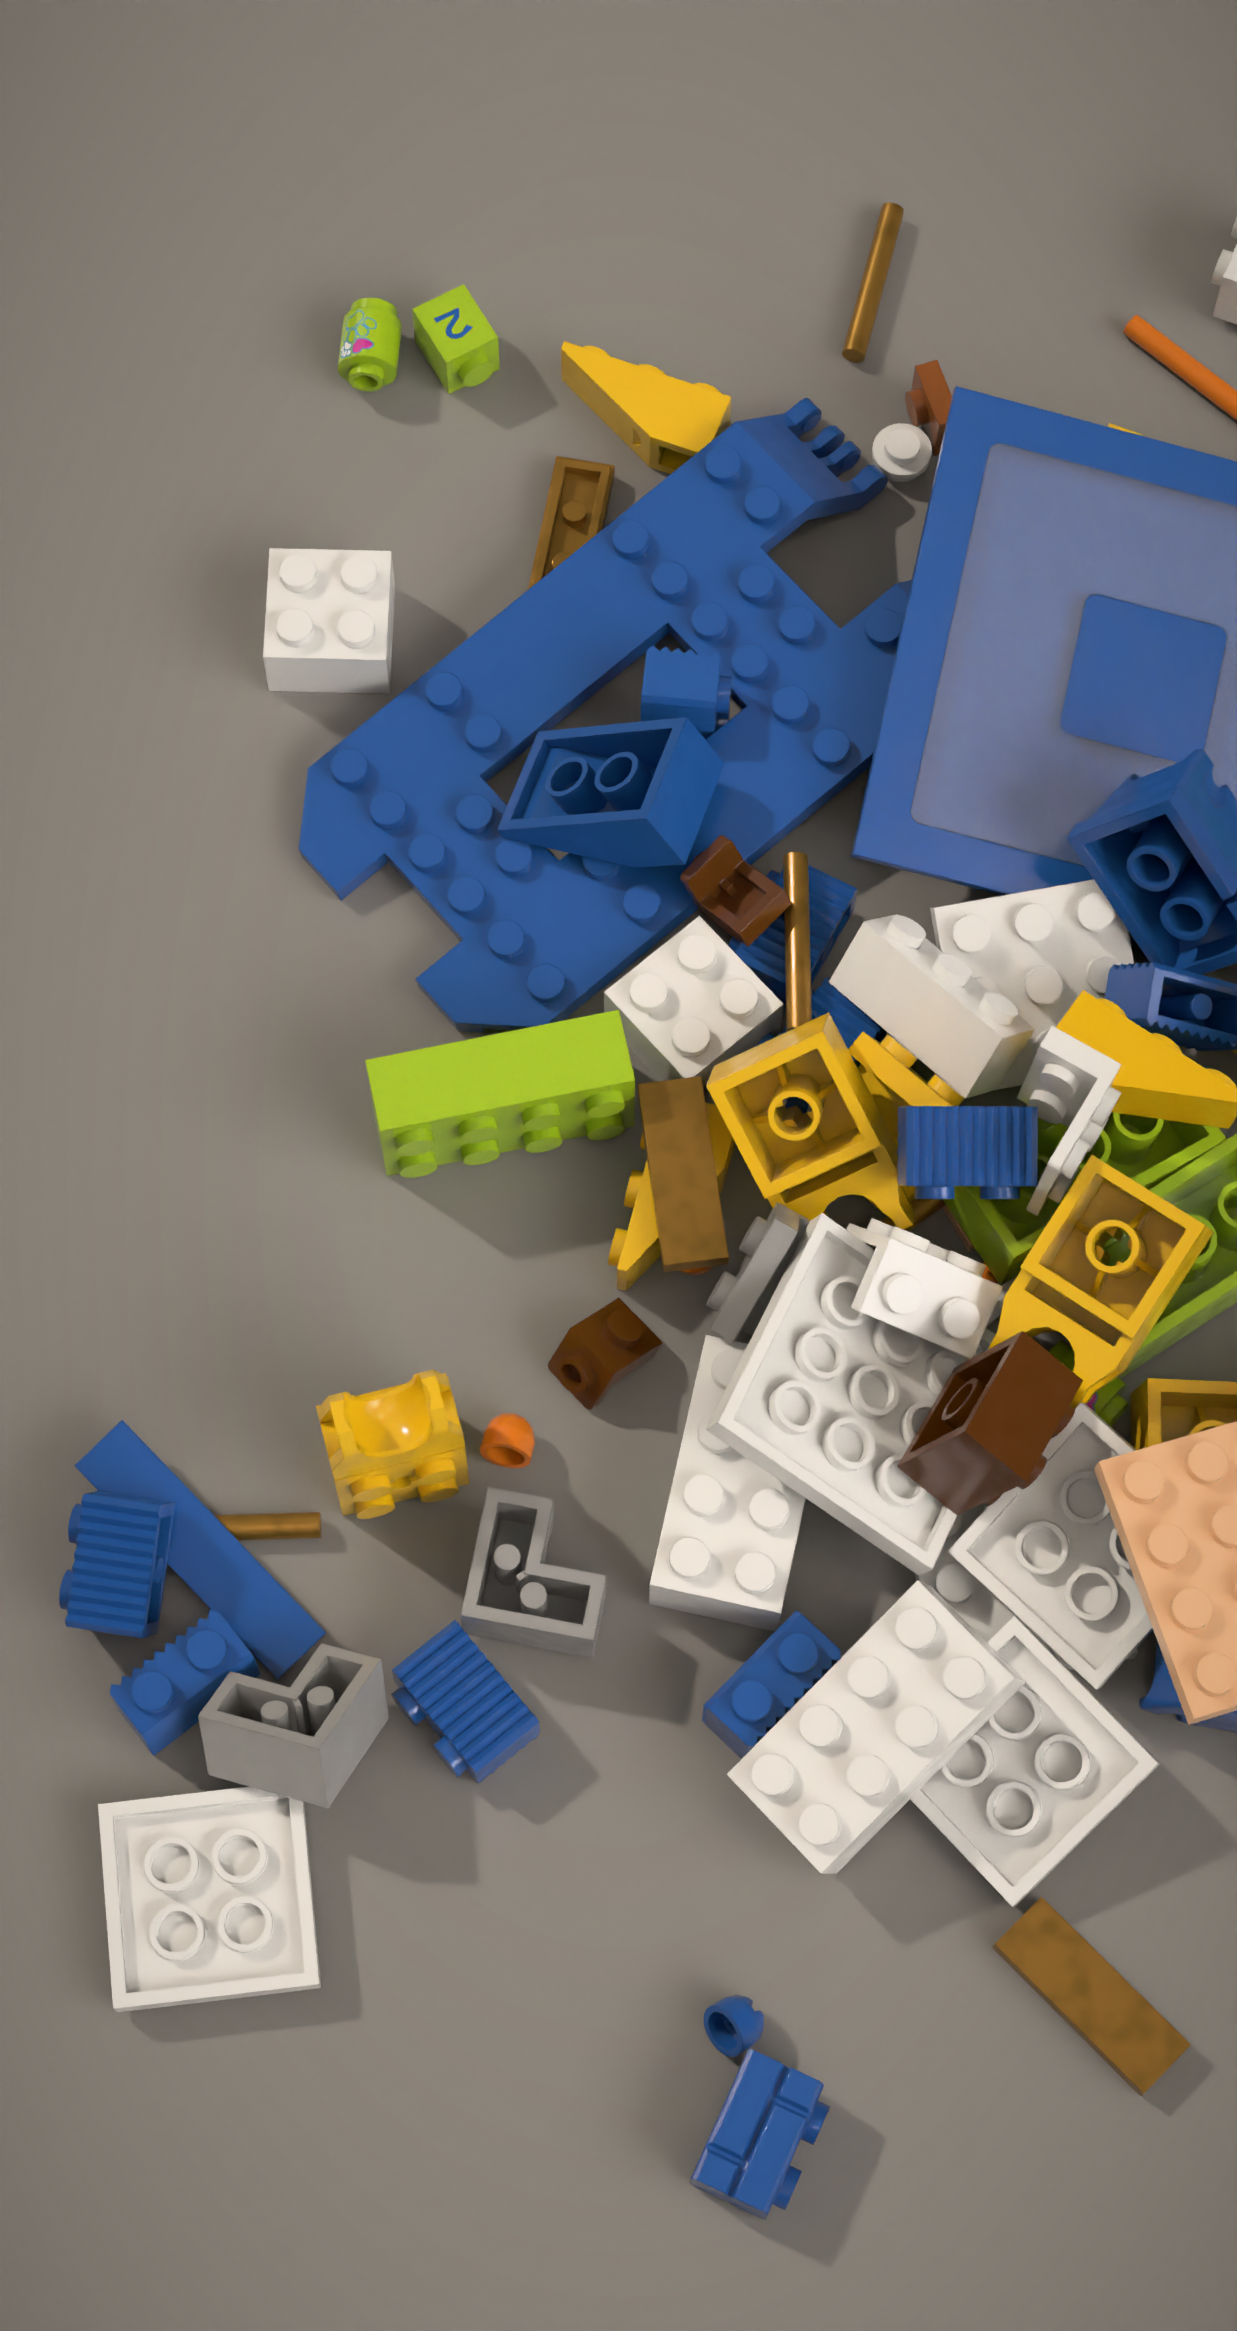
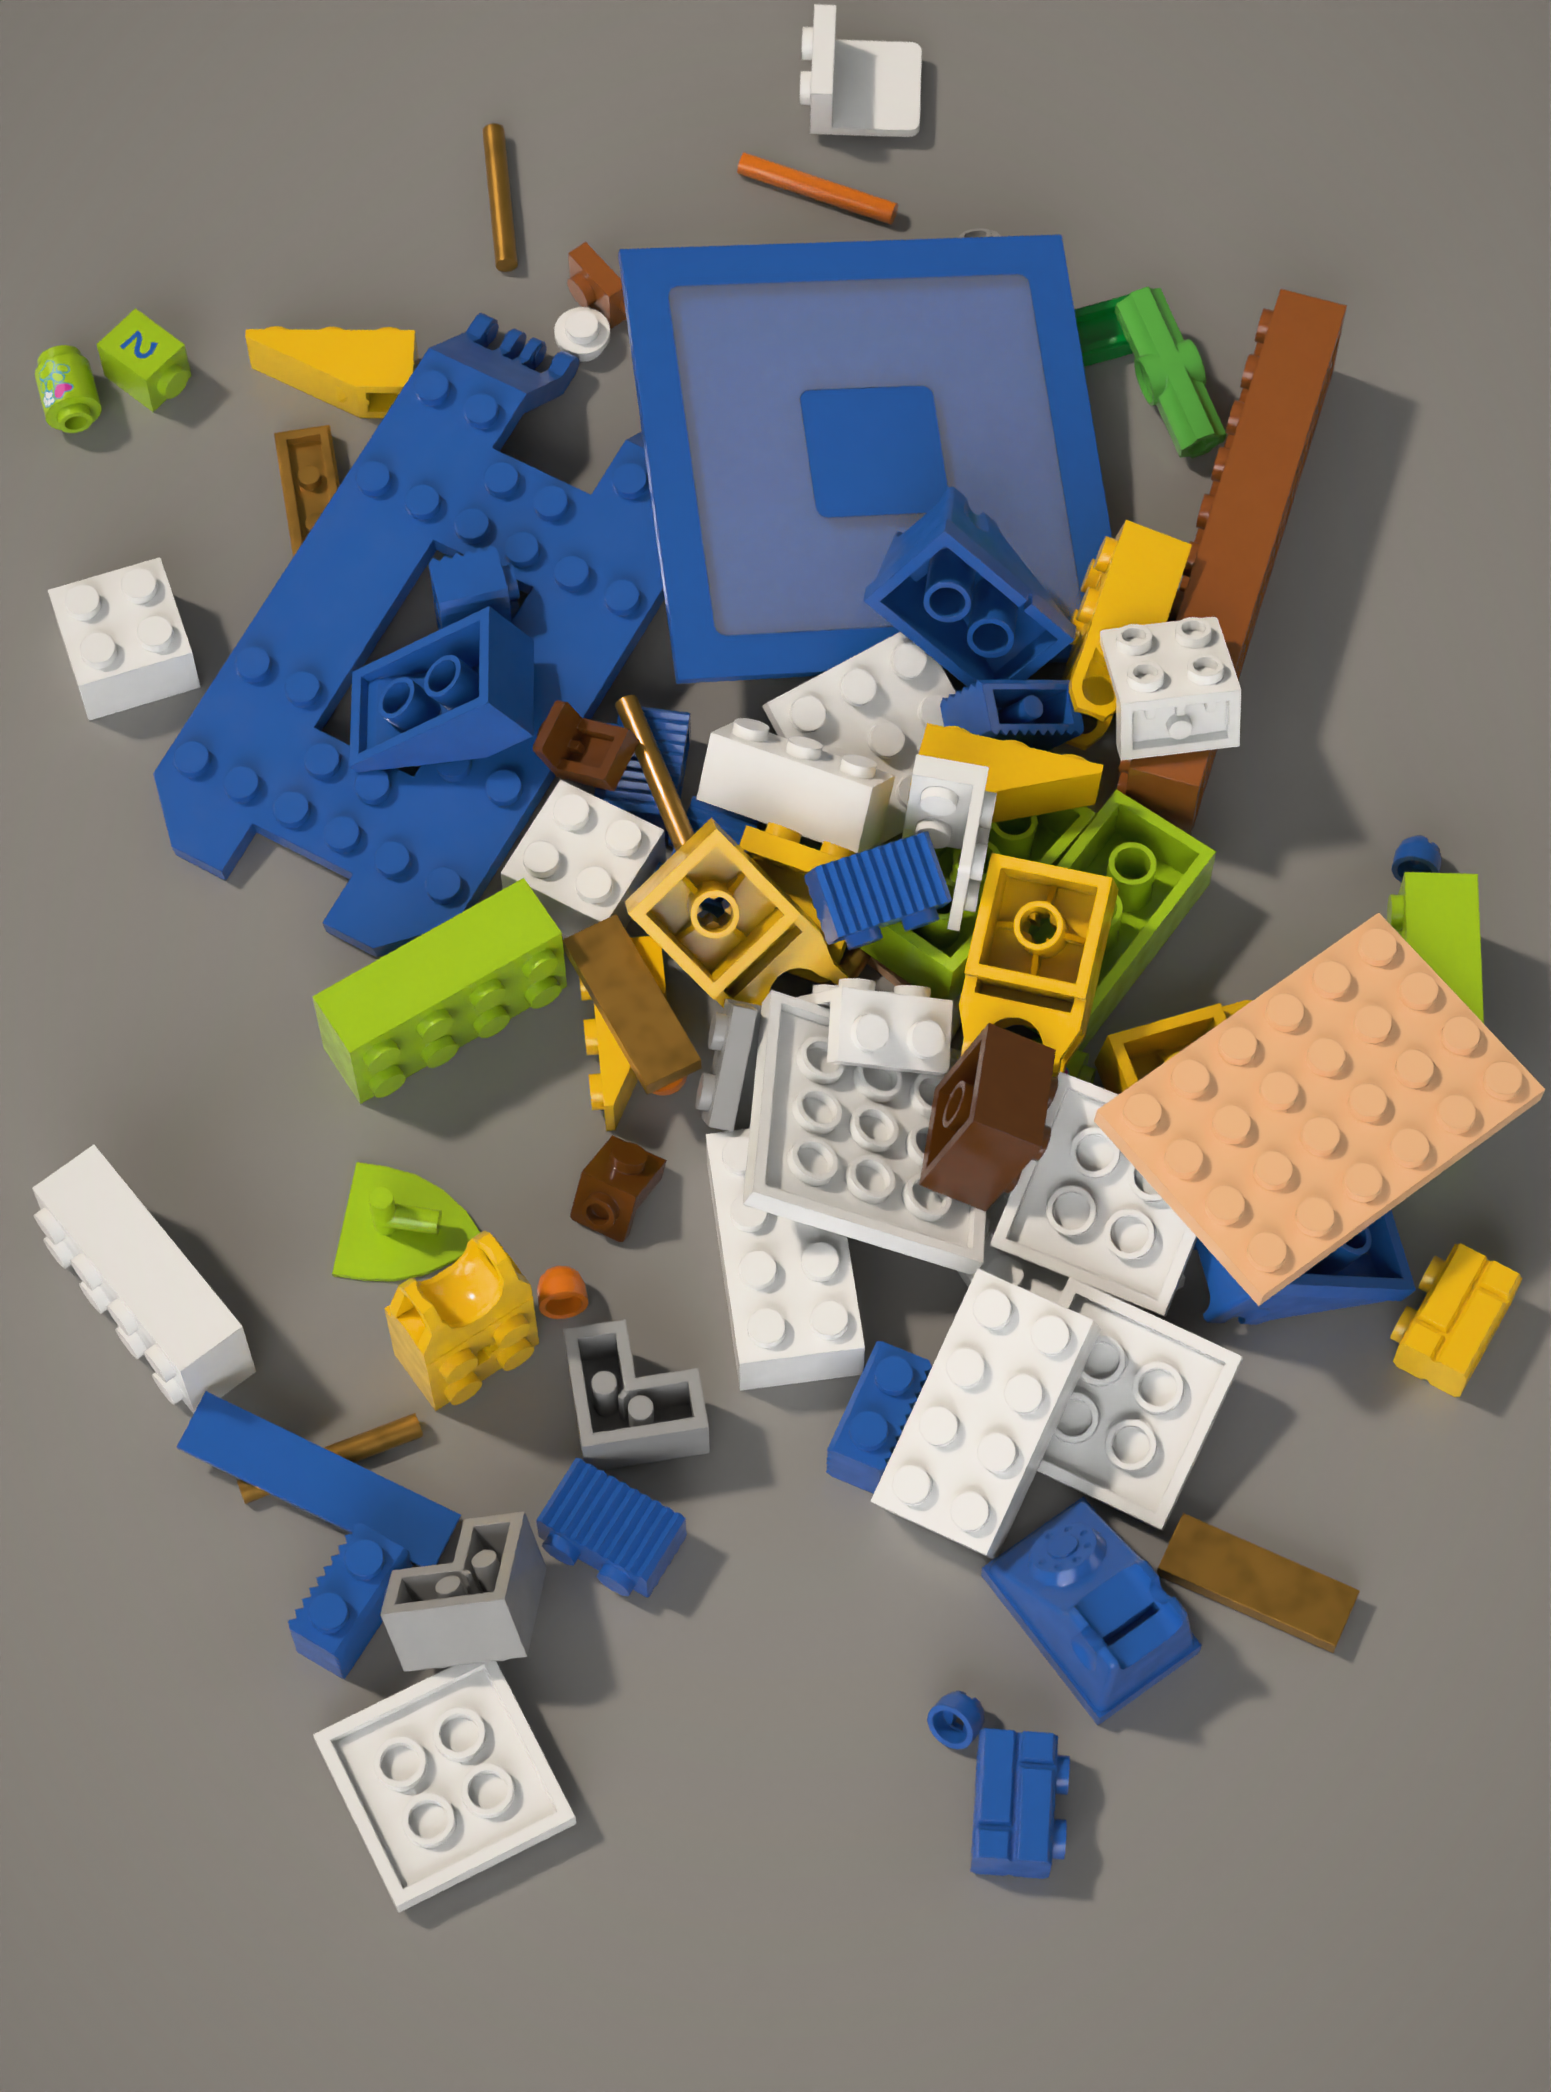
camera: 20 degrees left, 5 degrees down
(101, 1287) = (141, 1280): none -> white brick
(117, 1563) = (250, 1516): blue brick -> none
(378, 1316) = (399, 1227): none -> lime shield
(911, 1961) = (1093, 1609): none -> blue piece

